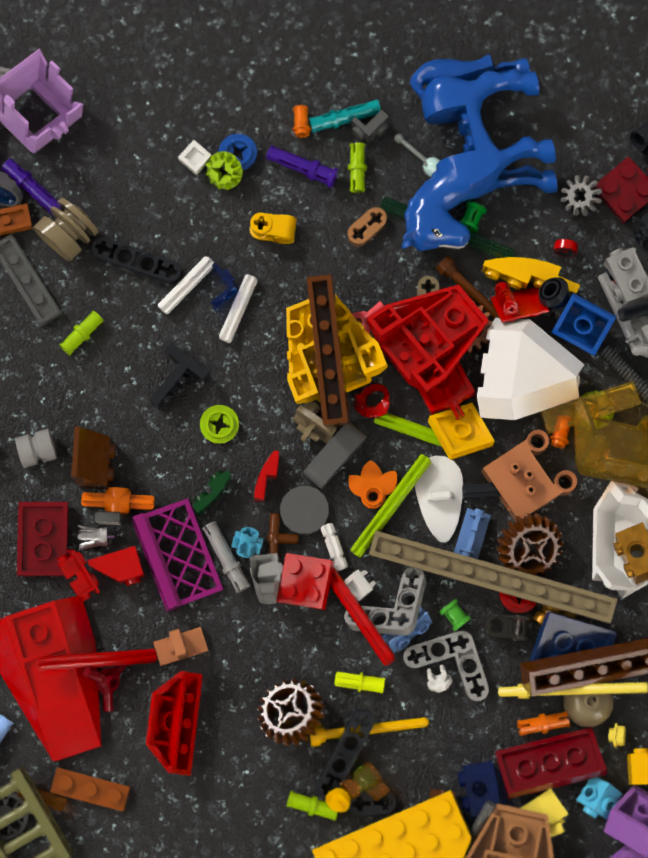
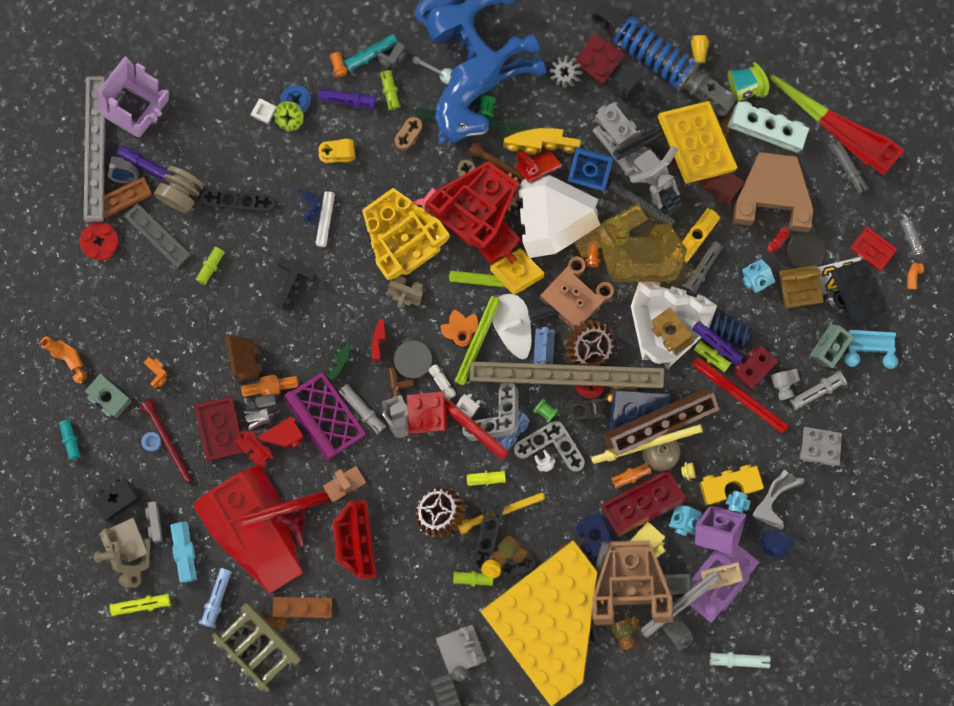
camera: 15 degrees left, 0 degrees up
(36, 448) = (197, 361): light grey wheel -> none
(186, 285) = (281, 210): white axle -> none
(213, 414) = (326, 304): lime gear -> none
(247, 542) = (375, 393): medium azure gear -> none
(328, 350) = (402, 234): reddish brown brick -> none
(334, 455) = (426, 312): dark grey beam -> none
(376, 411) = (450, 271): red piece -> none
(554, 293) = (562, 150): black cone -> none
(565, 248) = (563, 114): red tile -> none

